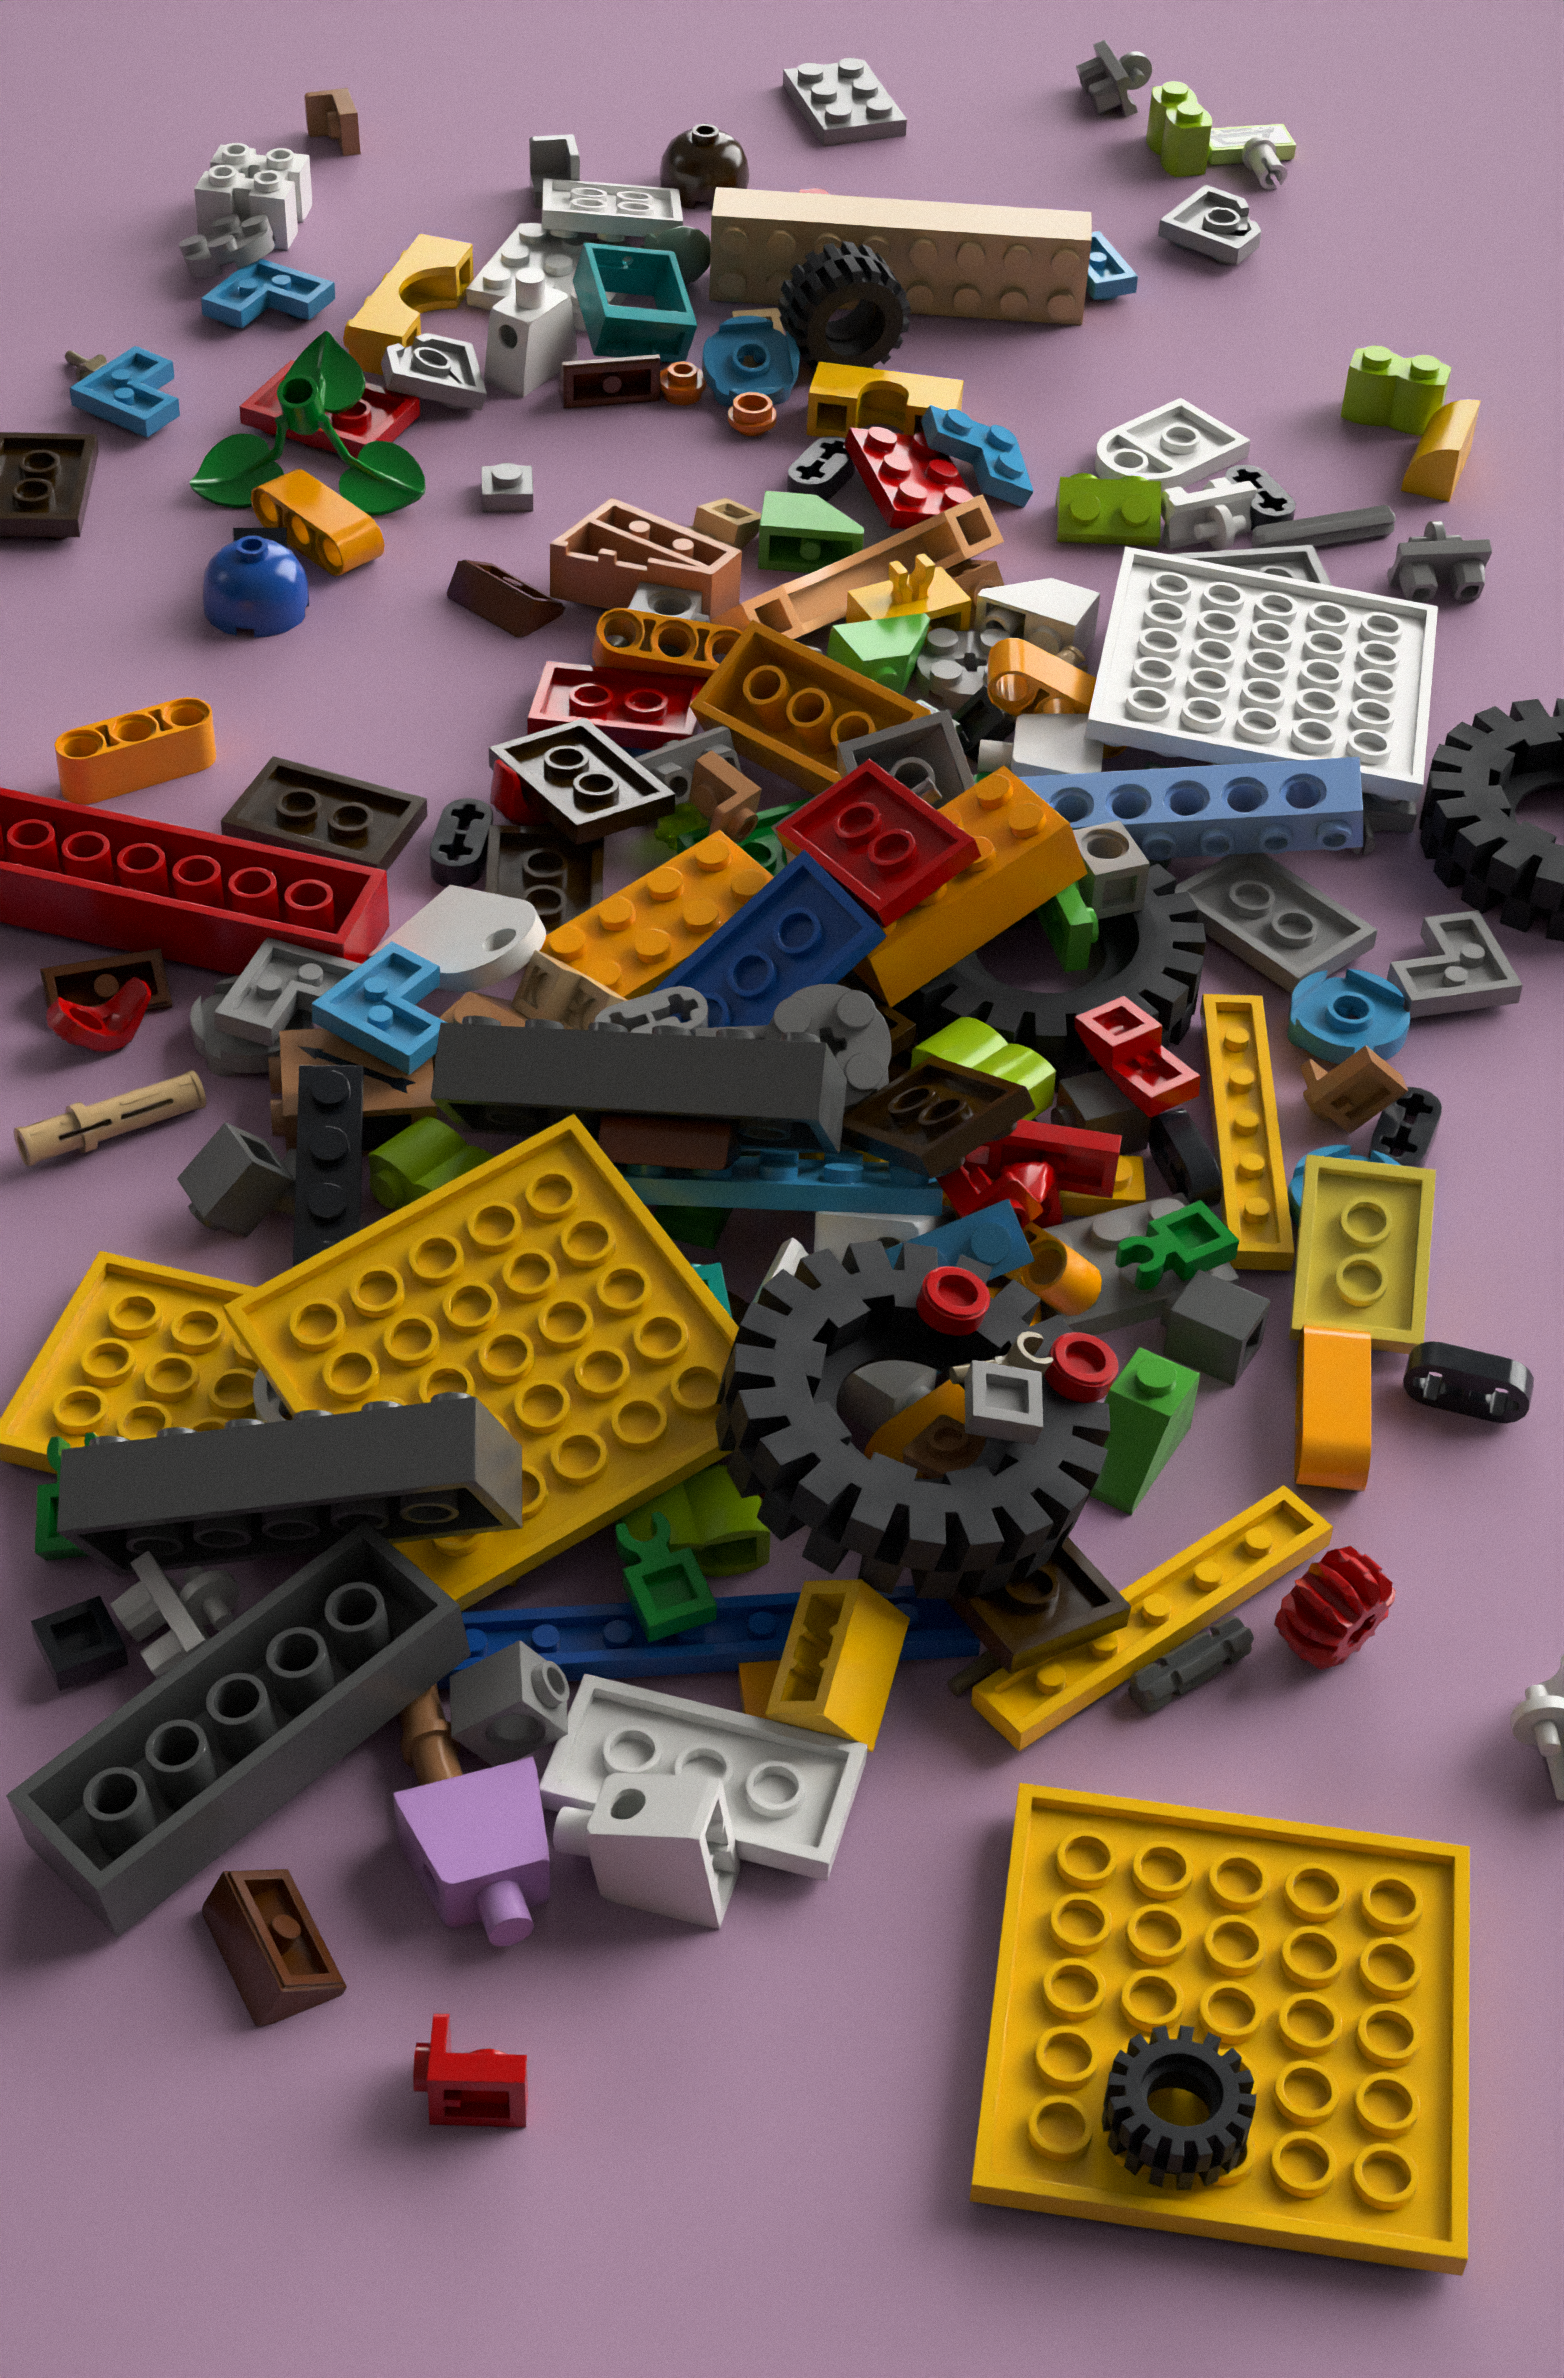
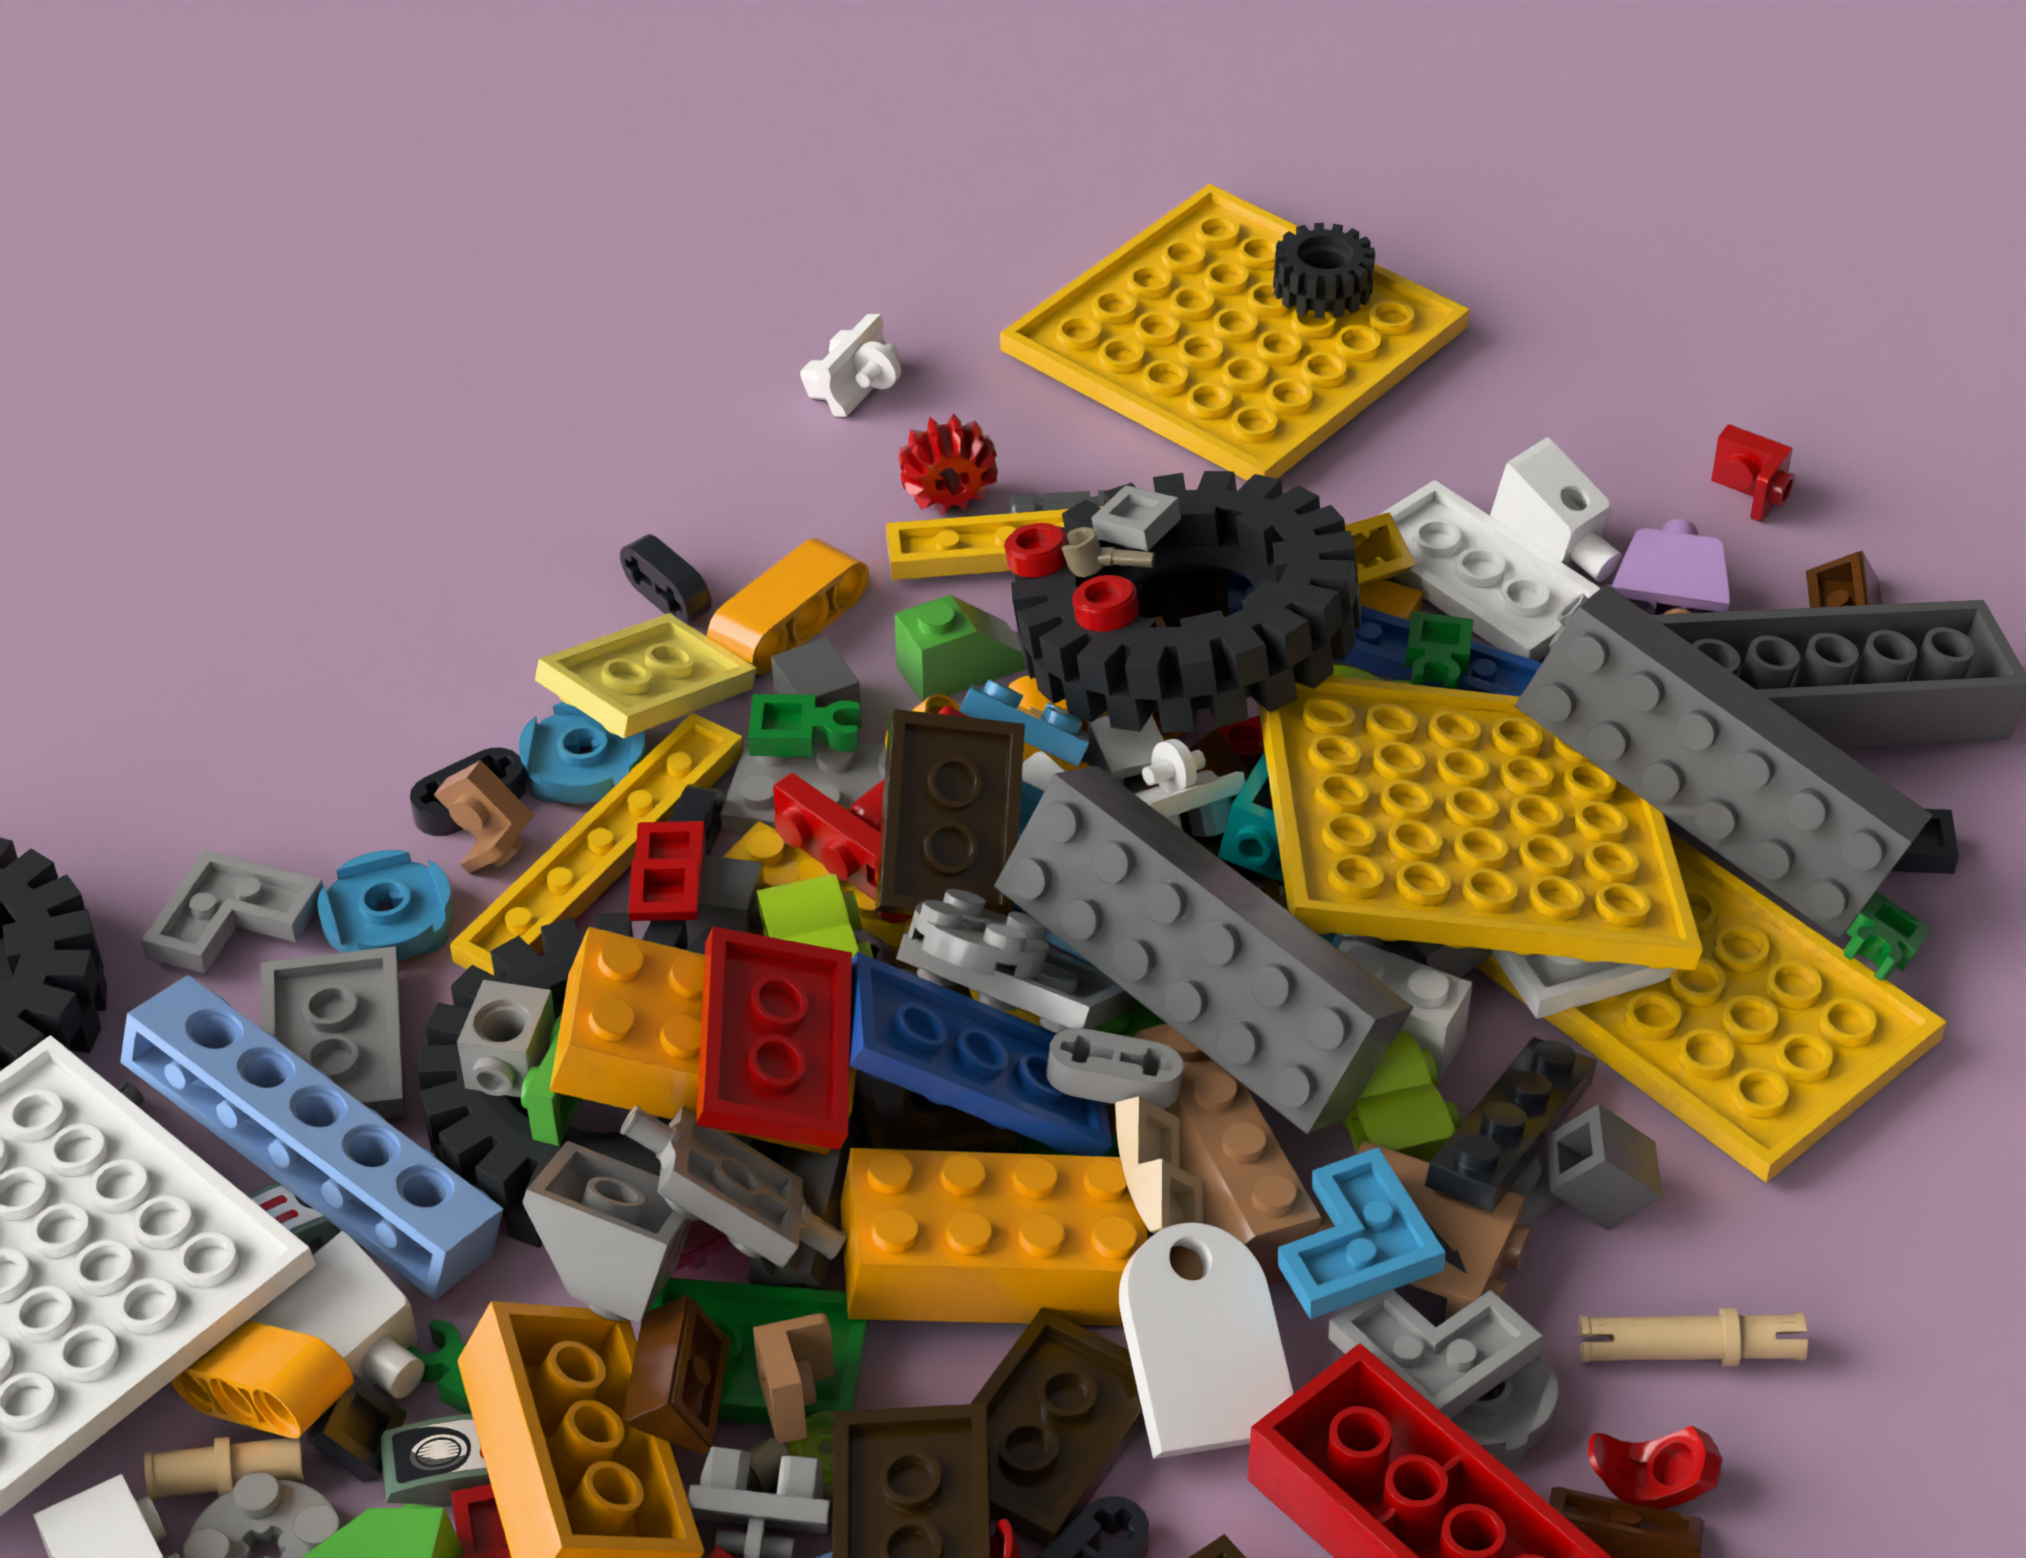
camera: 145 degrees left, 0 degrees up
(785, 767) = (678, 1375): none -> reddish brown slope

